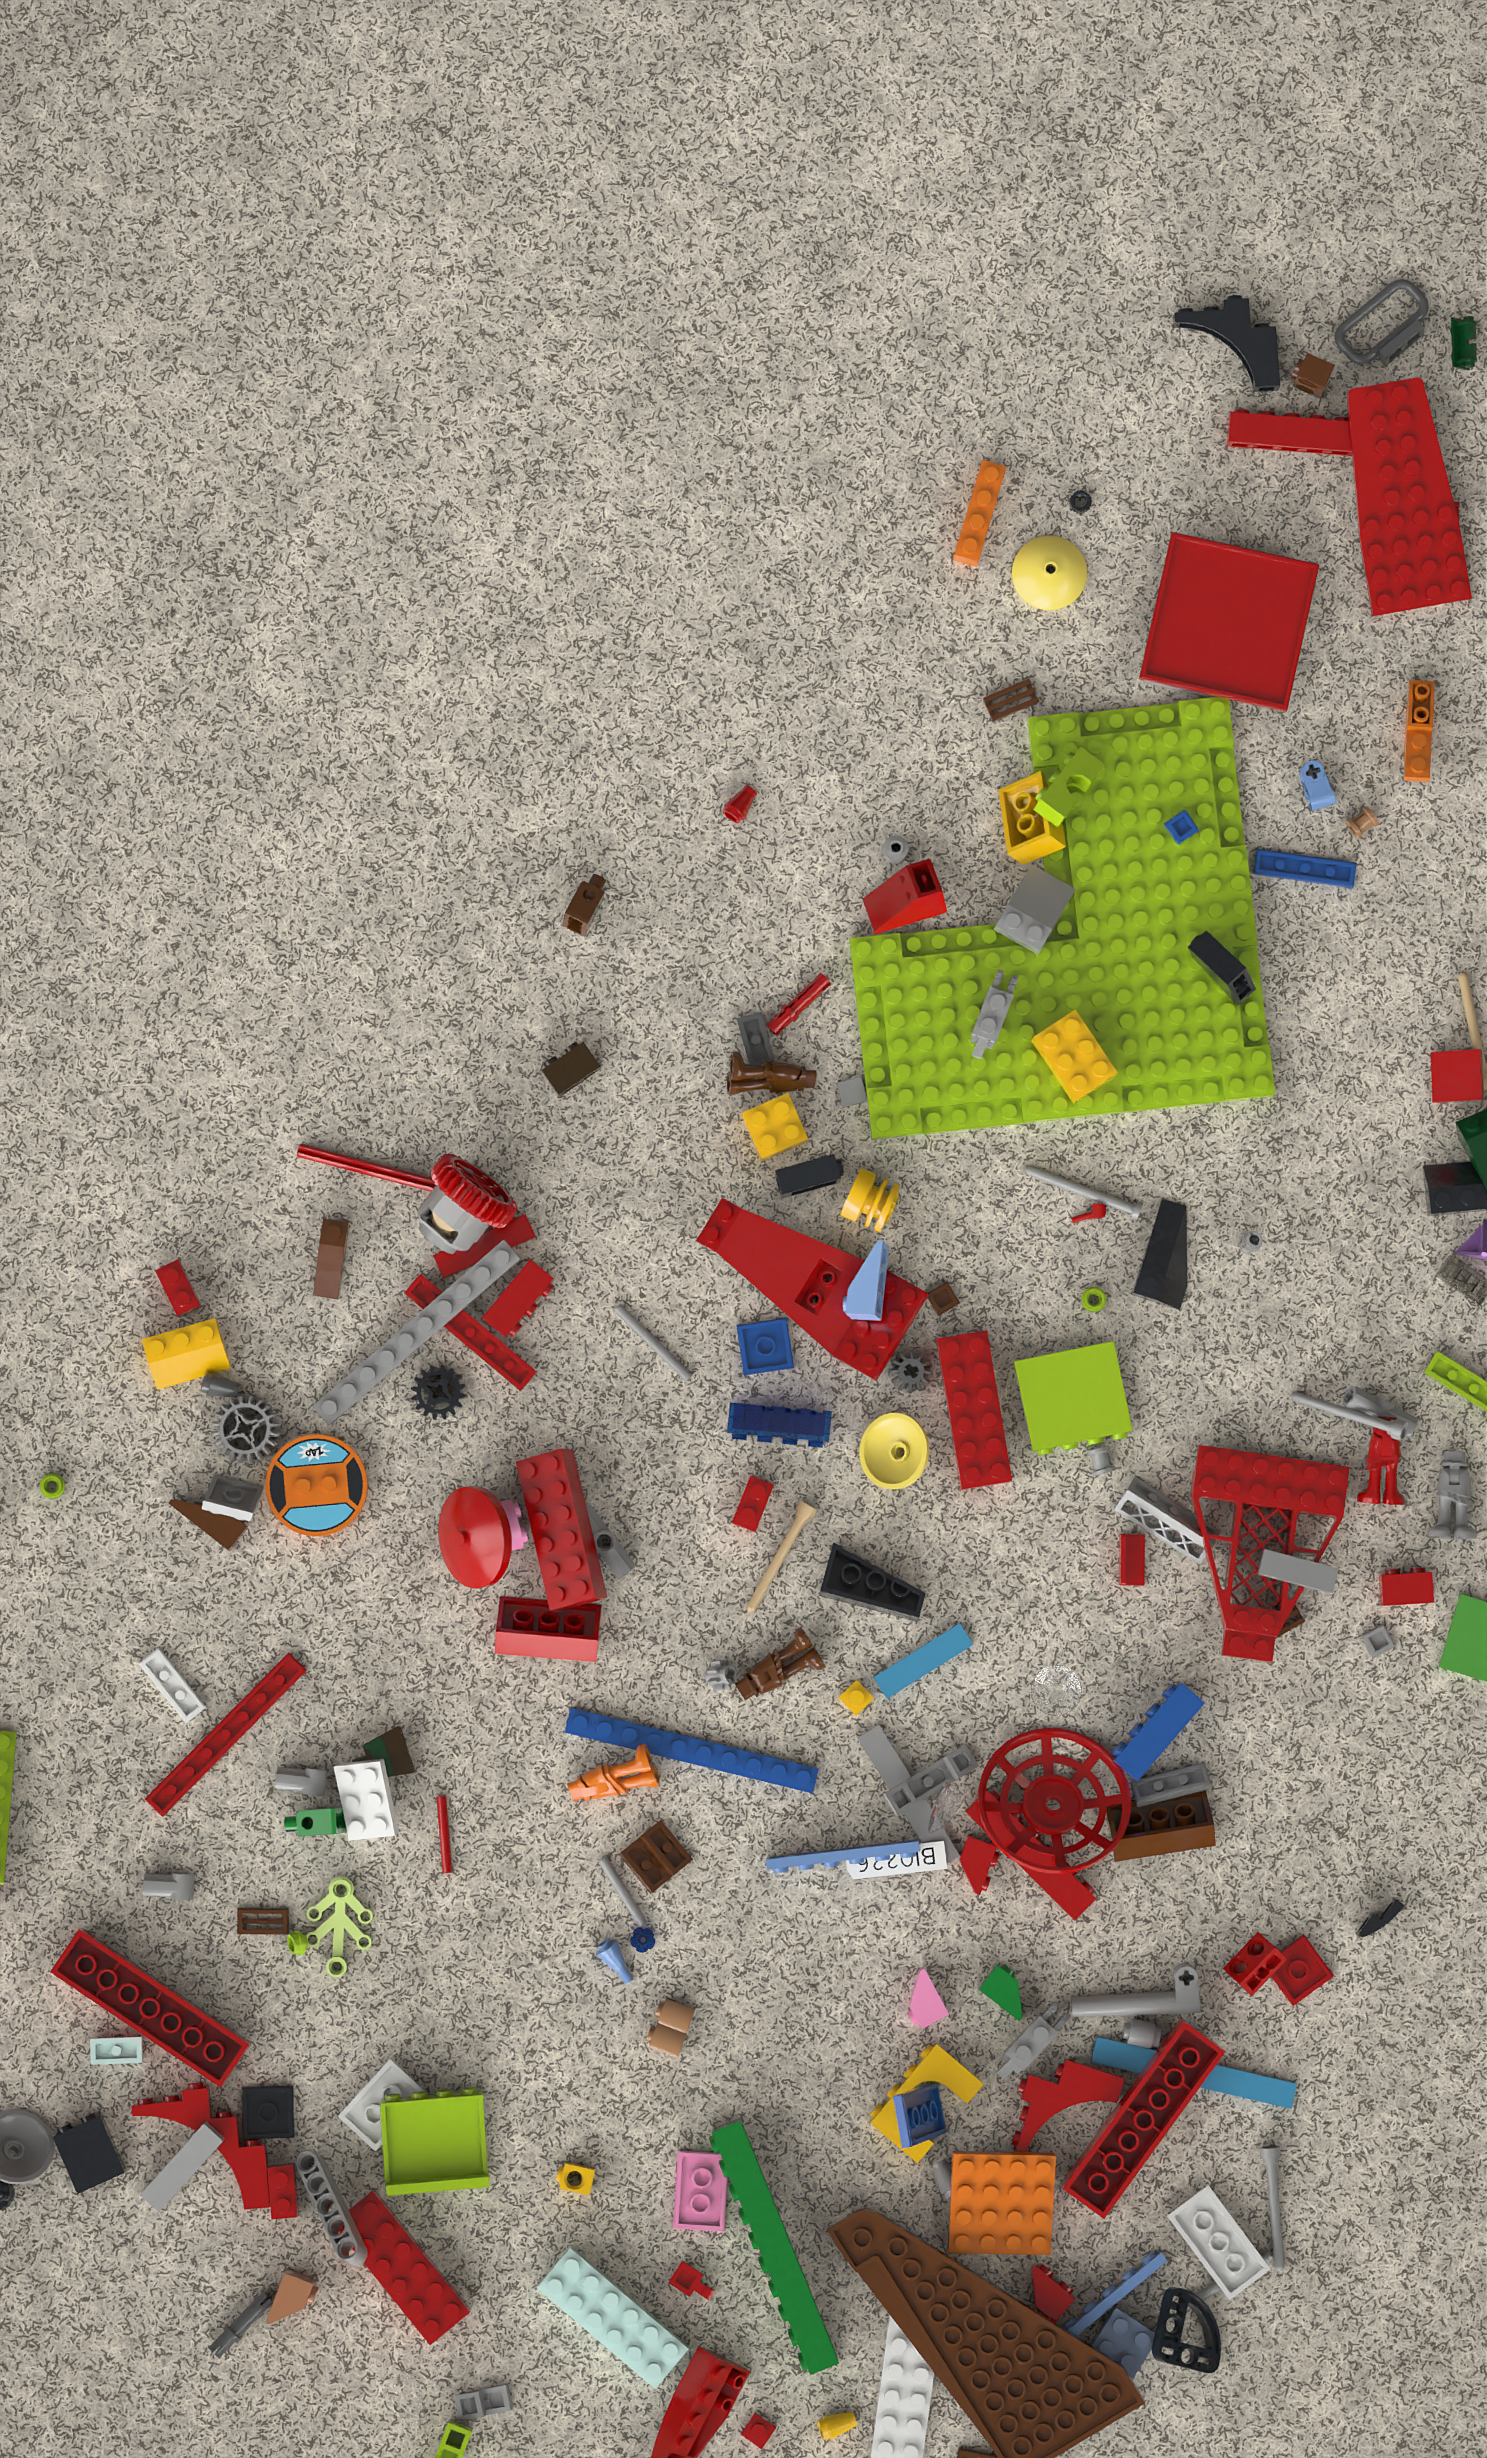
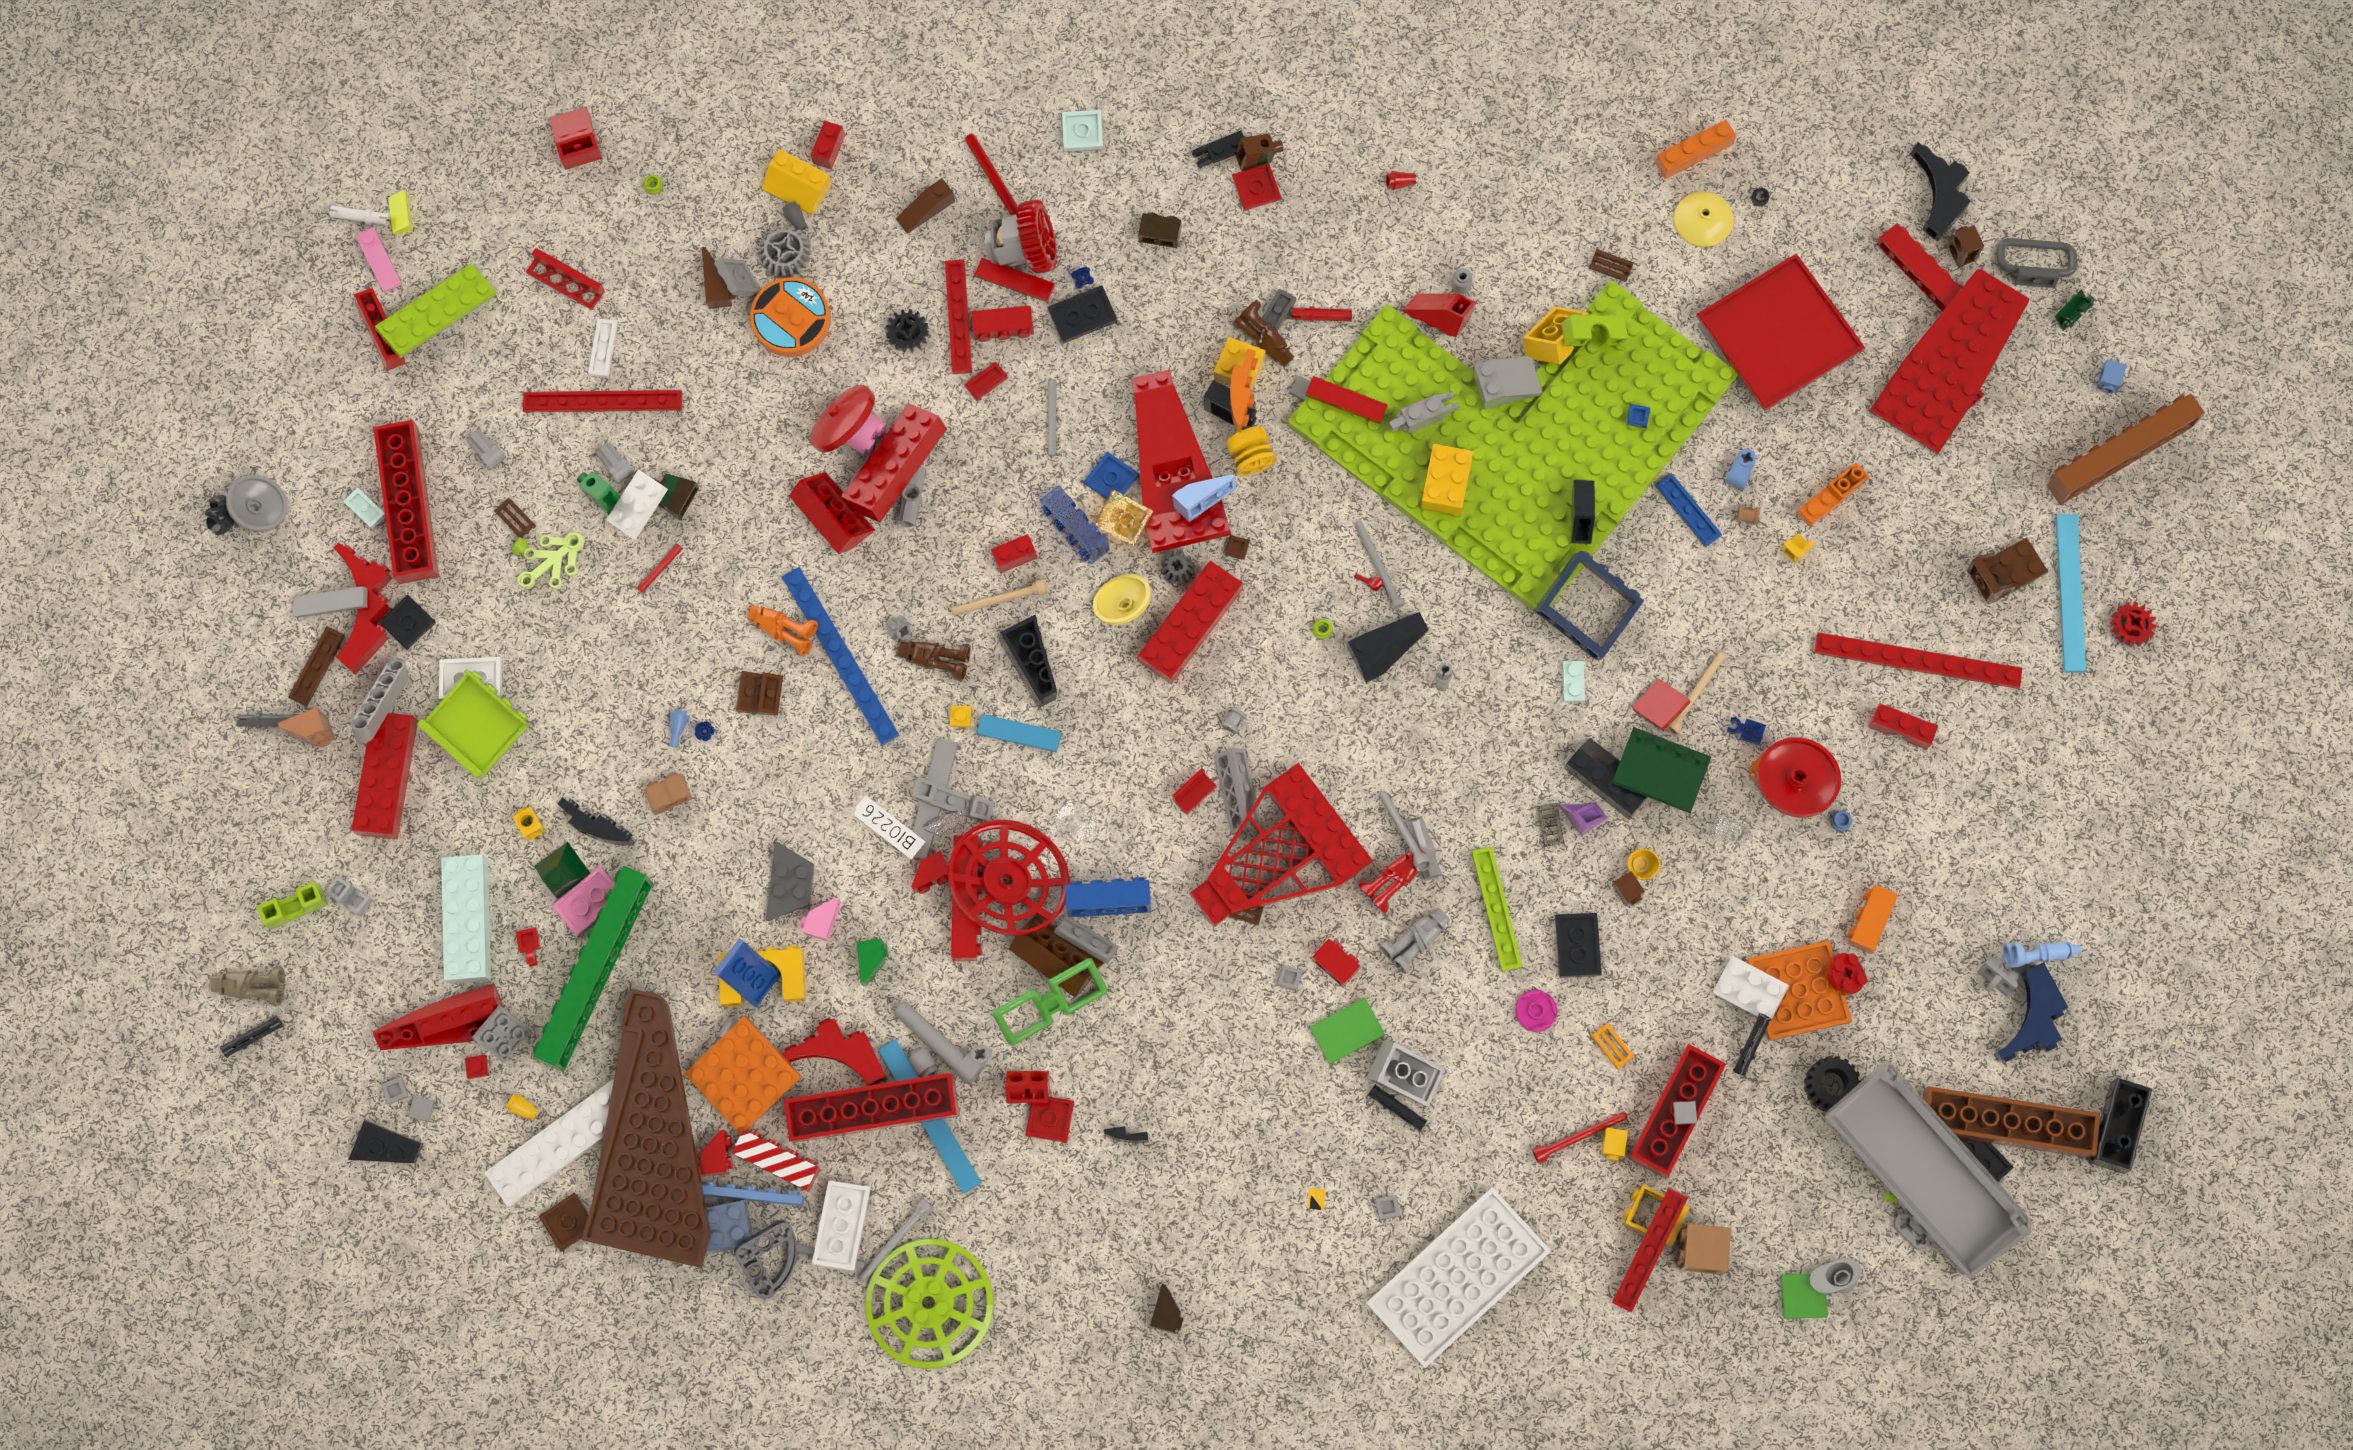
camera: 55 degrees right, 10 degrees down
(67, 1647) = (568, 272): none -> red fence
(89, 2152) = (291, 547): black brick -> none
(229, 2233) = (316, 666): none -> reddish brown tile
(283, 2191) = (366, 670): red brick -> none
(399, 1041) = (1082, 130): none -> light aqua plate
(416, 1332) = (929, 287): light grey plate -> none
(545, 932) = (1218, 149): none -> black hinge
(547, 1189) = (1085, 271): none -> clear blue plate
(557, 1367) = (986, 381): none -> red tile
(581, 1218) = (1082, 314): none -> black plate
(614, 938) = (1256, 187): none -> red tile
(623, 1892) = (721, 694): light grey bar -> none
(648, 2118) = (600, 829): none -> black slope
(648, 2188) = (562, 870): none -> dark green slope
(753, 2382) = (501, 1034): none -> light grey tile
(816, 1375) = (1123, 517): none -> clear yellow slope
(819, 1165) = (1240, 390): none -> orange slope
(853, 1854) = (867, 798): medium blue plate -> none
(860, 1996) = (789, 883): none -> dark grey wing
(908, 1068) = (1346, 400): none -> red tile
(1031, 2042) = (855, 1002): light grey hinge -> none
(1073, 1397) = (1253, 669): lime panel -> none
(1105, 2244) = (776, 1160): none -> brick
(1201, 1871) = (1050, 1002): none -> bright green bar
(1267, 1056) = (1567, 628): none -> dark blue window
(1297, 1571) = (1281, 887): light grey tile -> none
(1341, 2224) = (939, 1313): none -> lime dish
(1359, 1128) = (1573, 681): none -> light aqua plate
(1434, 810) = (1797, 547): none -> yellow panel

